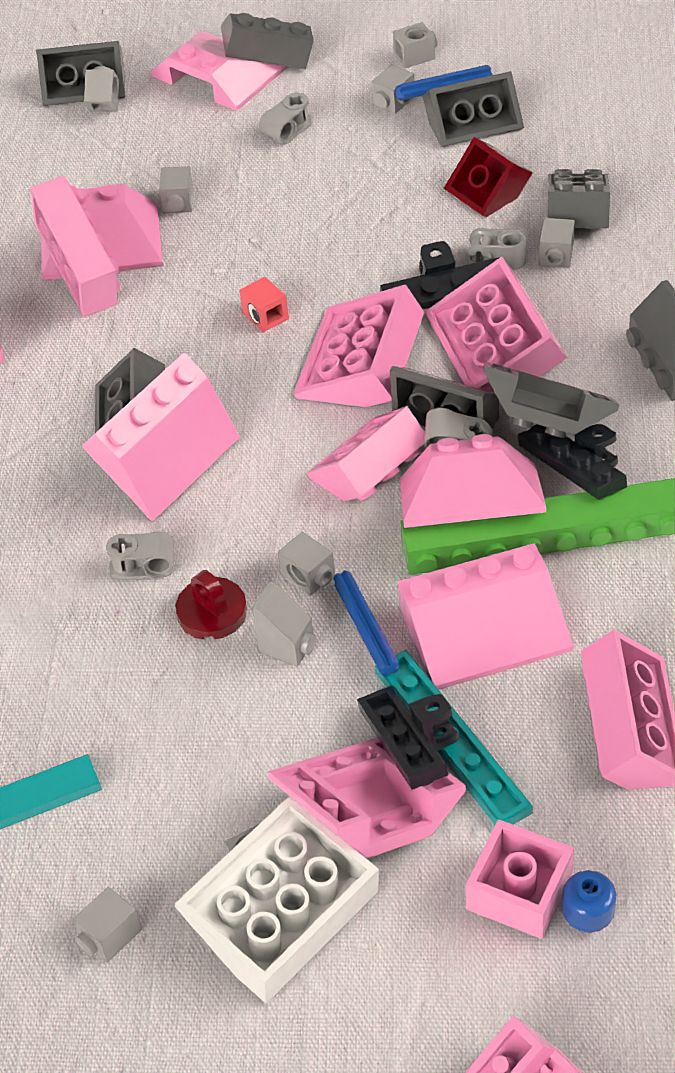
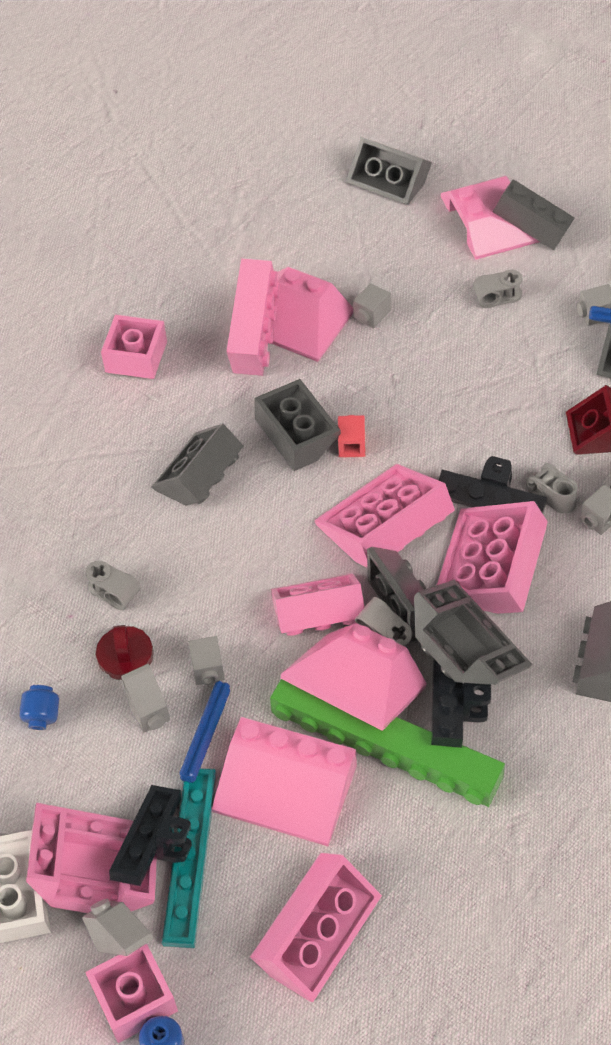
camera: 35 degrees right, 5 degrees up
(101, 89) = (387, 192): light grey brick -> none
(164, 437) = (188, 506): bright pink slope -> none
(171, 702) = (39, 707): none -> blue head
(201, 319) = (295, 423): none -> dark grey slope
(456, 831) = (115, 928): none -> light grey slope

